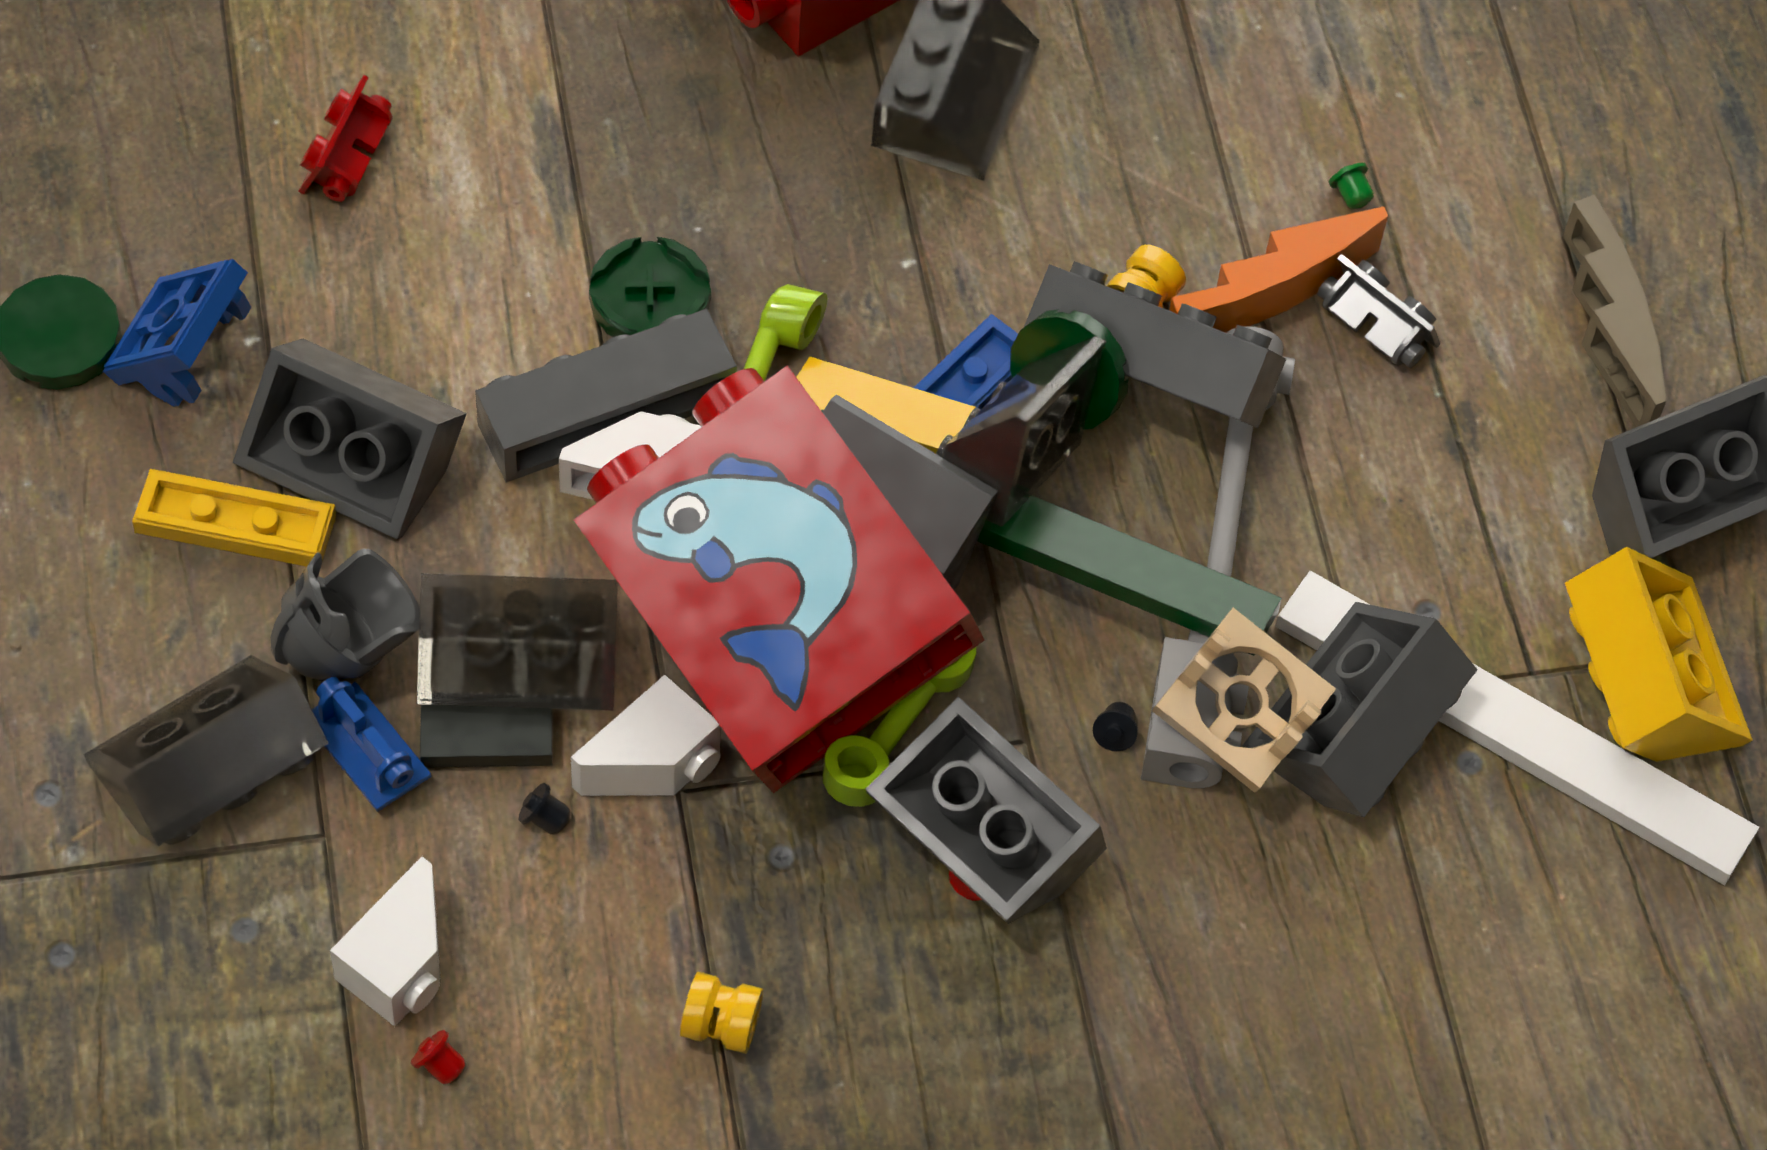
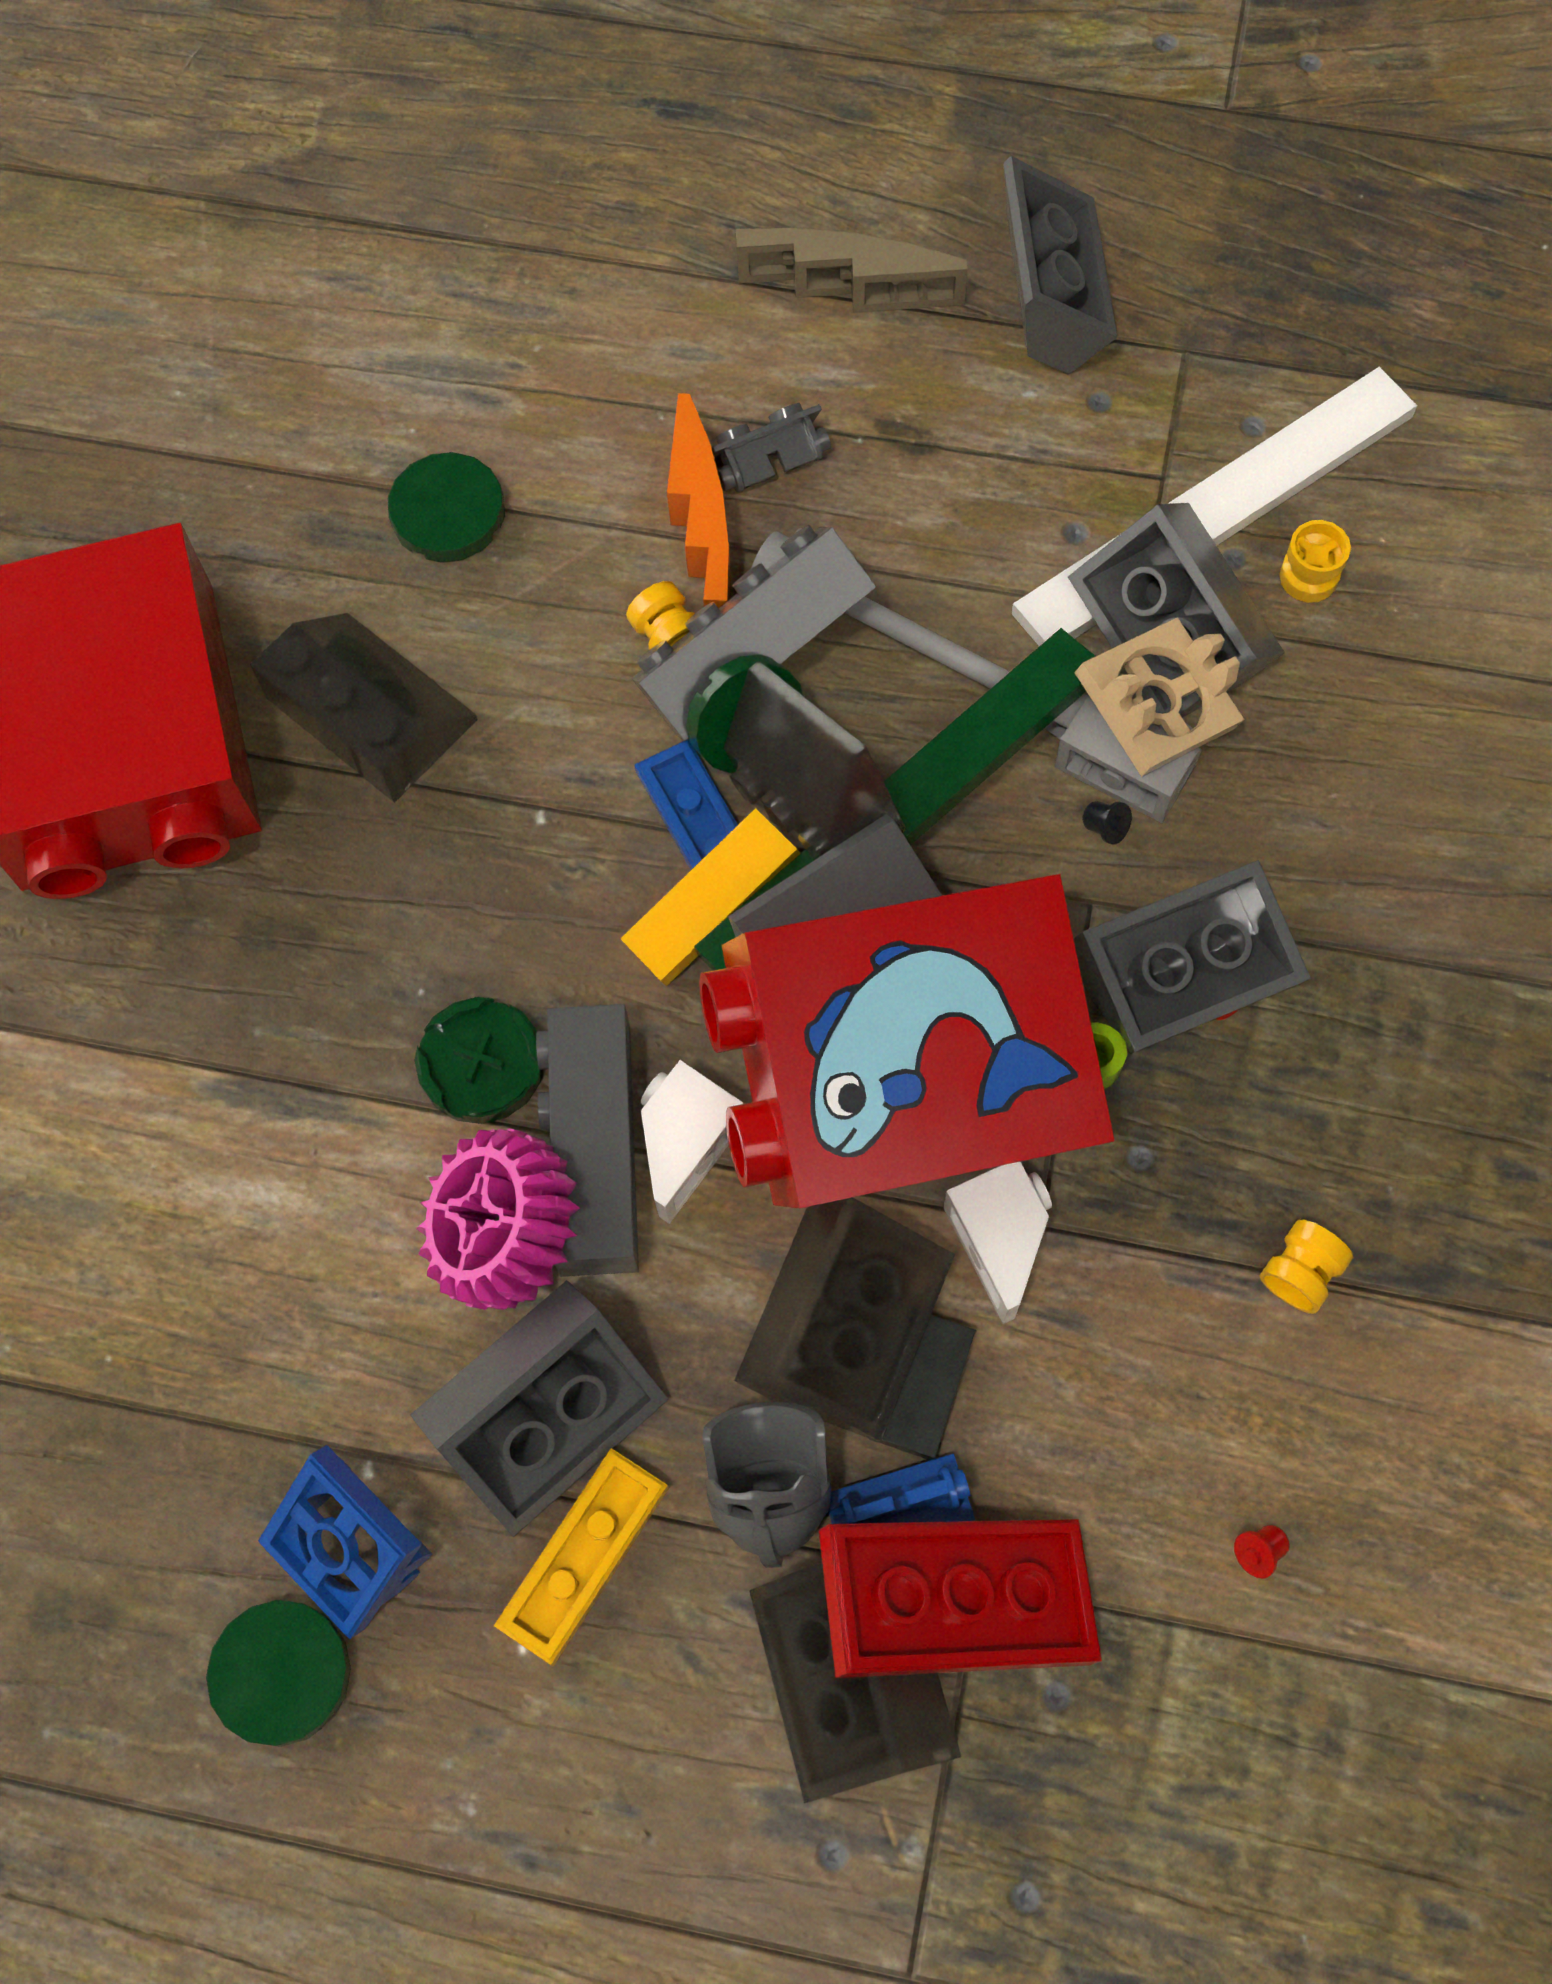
camera: 60 degrees left, 10 degrees up
(293, 792) = (957, 1597): none -> red tile
(332, 159) = (154, 1277): red hinge -> none
(393, 948) = (1145, 1548): white slope -> none
(496, 335) = (503, 1259): none -> dark pink gear
(544, 810) = (1023, 1360): black piece -> none
(788, 320) = (576, 945): lime piece -> none
(1186, 77) = (446, 506): none -> dark green tile
(1353, 185) = (625, 417): green piece -> none
(1487, 809) = (1314, 561): none -> yellow wheel
(1655, 658) = (1201, 379): yellow slope -> none

